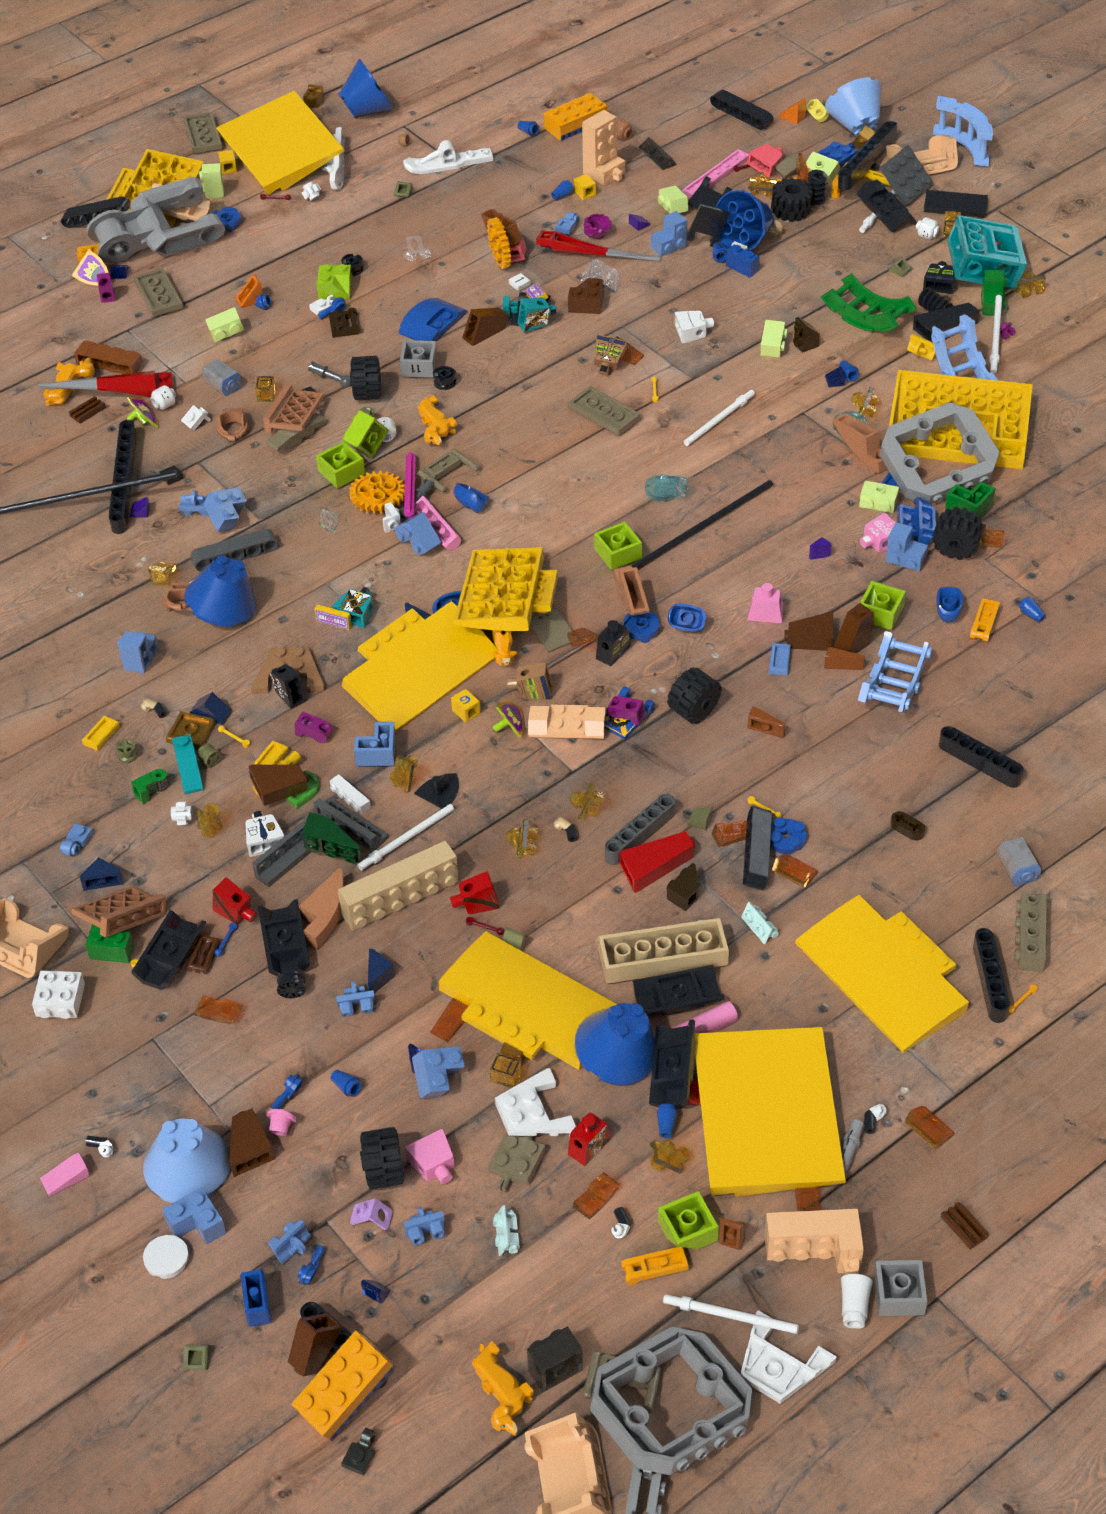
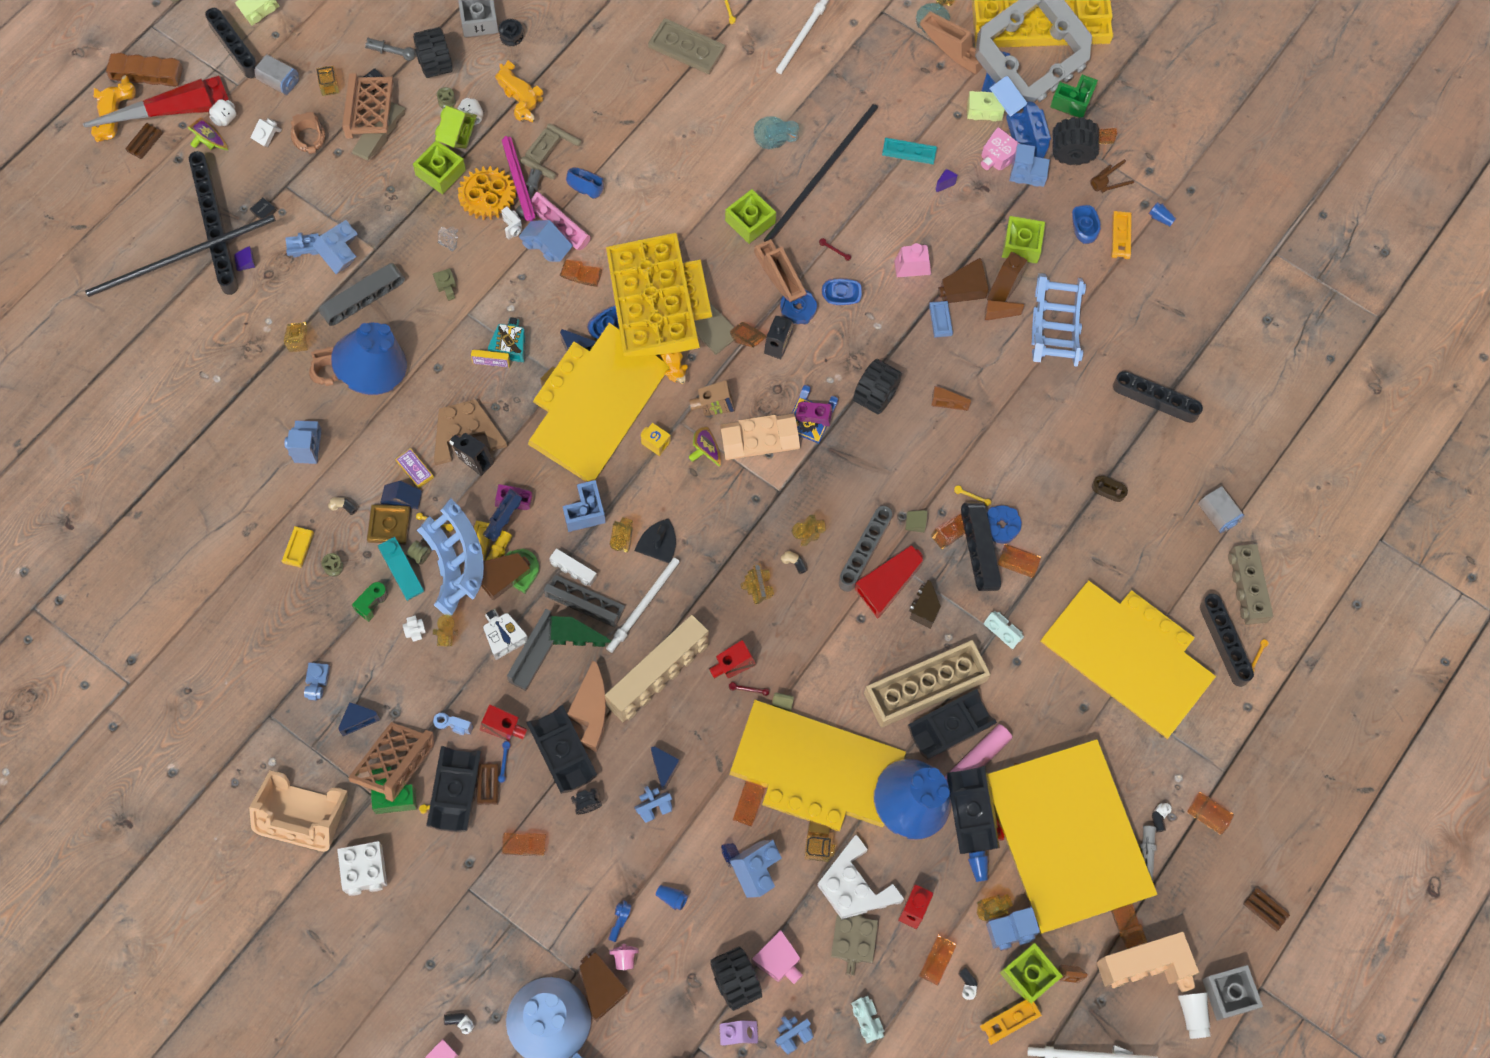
camera: 20 degrees left, 20 degrees up
(191, 348) = (231, 42): none -> black beam
(193, 898) = (458, 725): none -> light blue plate
(231, 691) = (414, 468): none -> tile
(236, 769) = (454, 584): none -> light blue fence
(296, 736) = (502, 514): none -> dark blue hinge
(314, 553) = (445, 282): none -> olive plate
(439, 566) = (578, 273): none -> clear orange slope
(682, 1179) = (1017, 927): none -> medium blue brick
(683, 580) = (822, 242): none -> dark red hinge
(792, 522) = (909, 151): none -> teal tile
(901, 488) = (1008, 96): none -> light blue slope
(977, 572) = (1101, 180): none -> reddish brown plant

